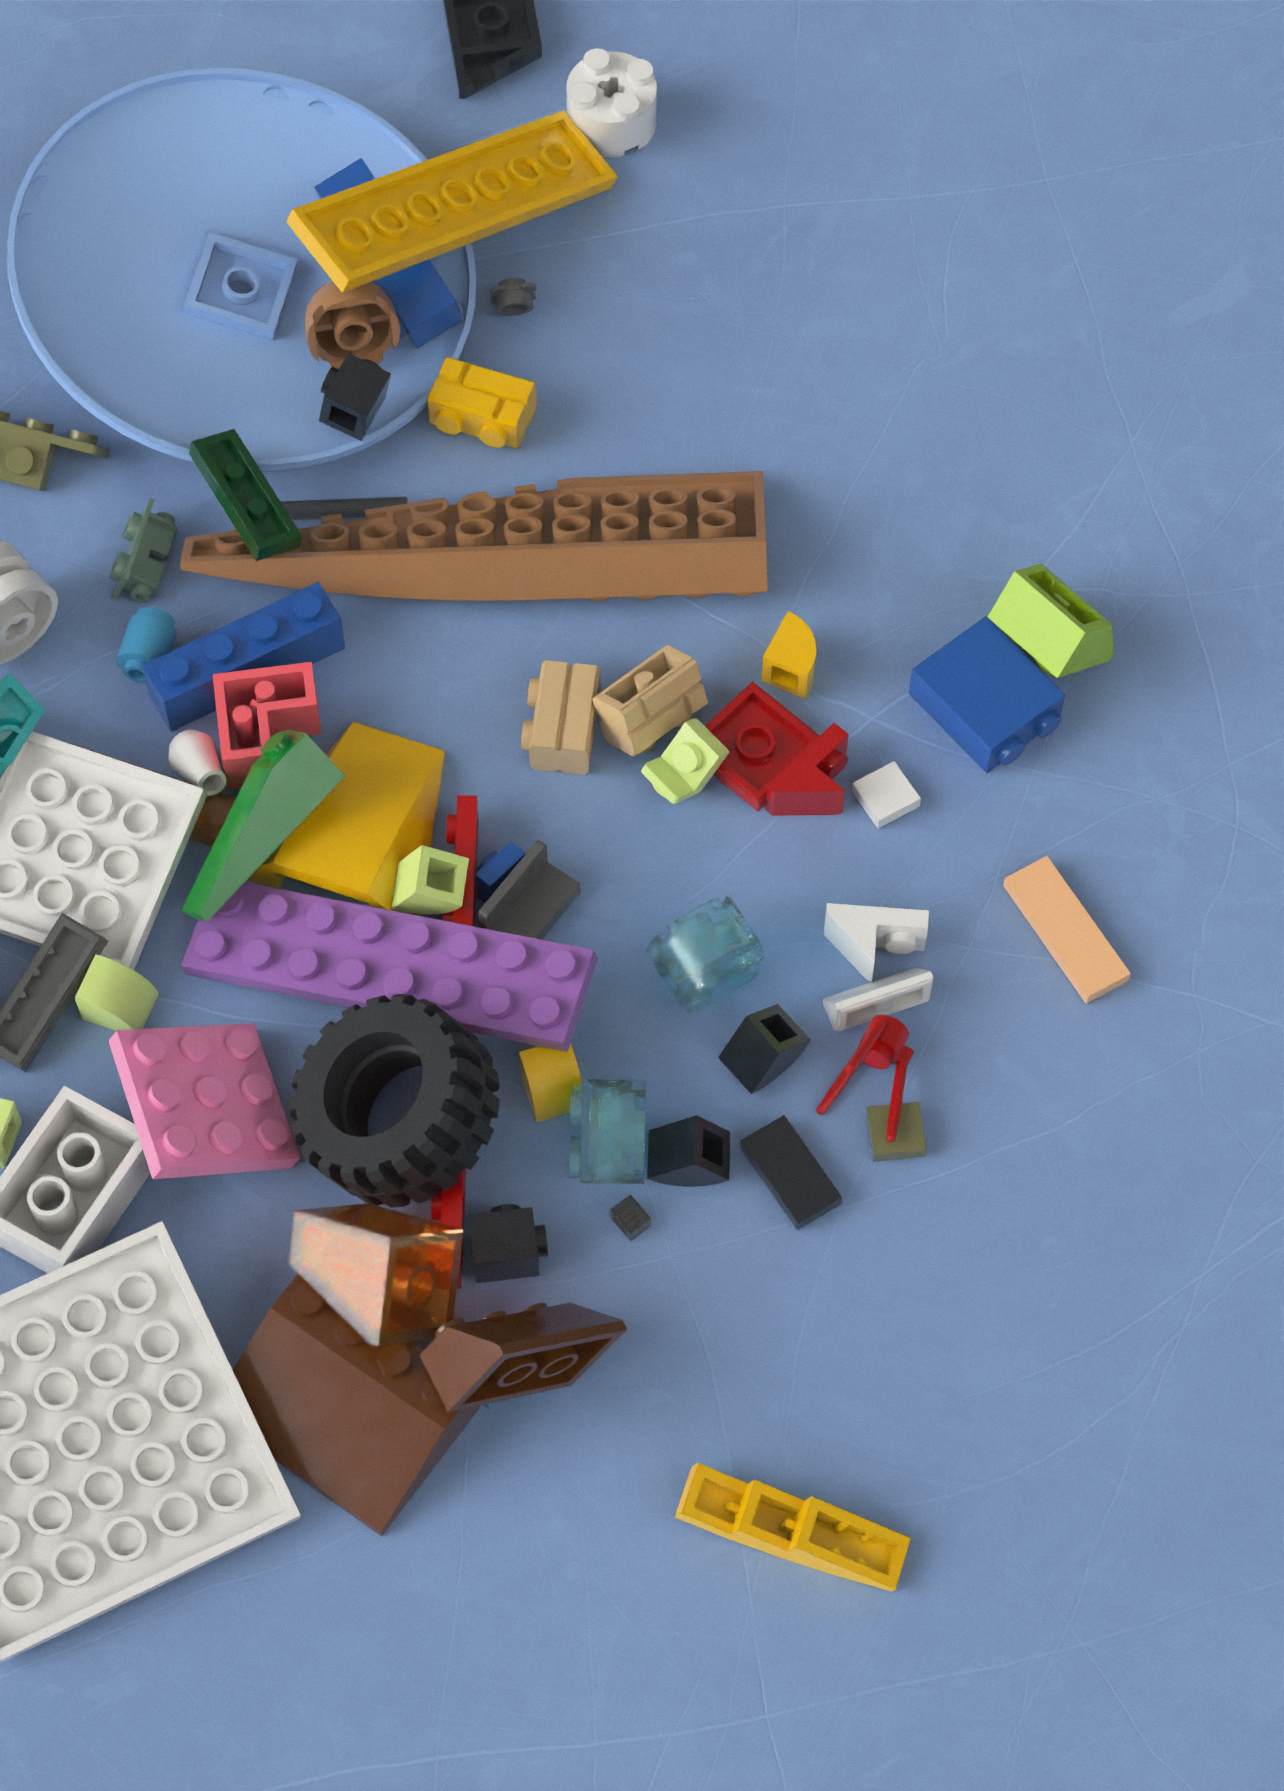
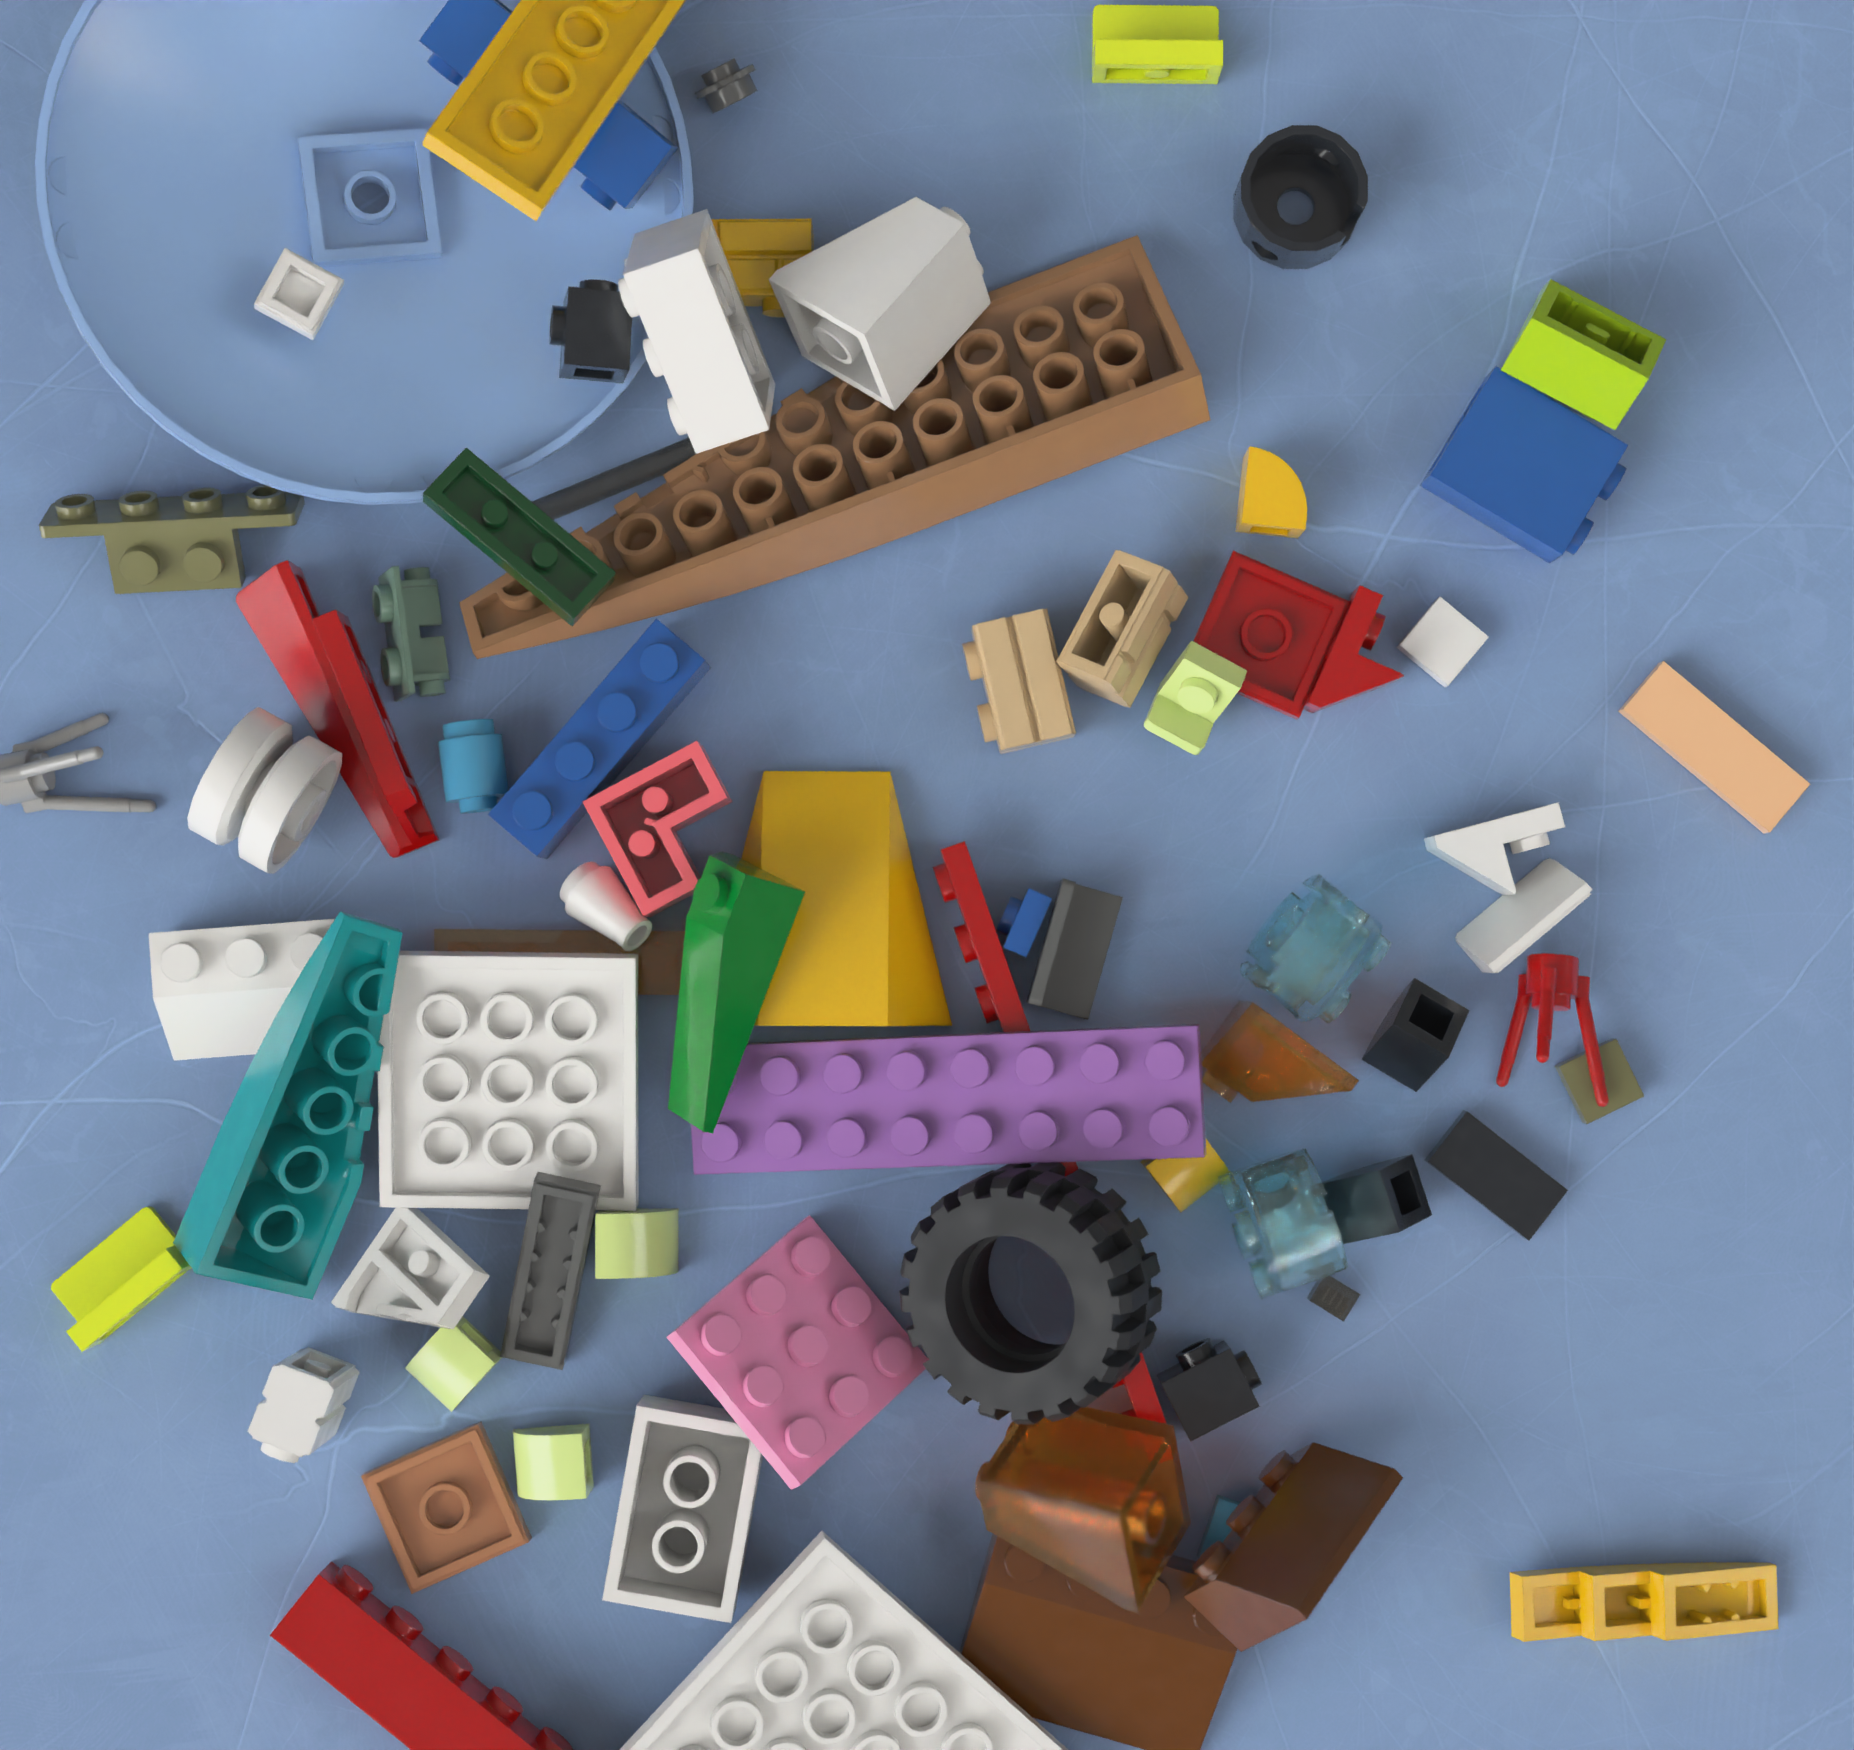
camera: 15 degrees left, 25 degrees up
(72, 563) = (340, 700): none -> red wedge
(164, 308) = (298, 294): none -> white tile
(351, 323) = (555, 243): medium nougat cylinder -> none
(425, 409) = (698, 332): none -> white brick
(430, 882) = (956, 984): yellowish green brick -> none
(565, 440) = (885, 298): none -> white slope
(644, 1018) = (1267, 1060): none -> clear orange slope
(820, 366) = (1156, 44): none -> neon yellow panel
(885, 455) = (1307, 162): none -> black piece

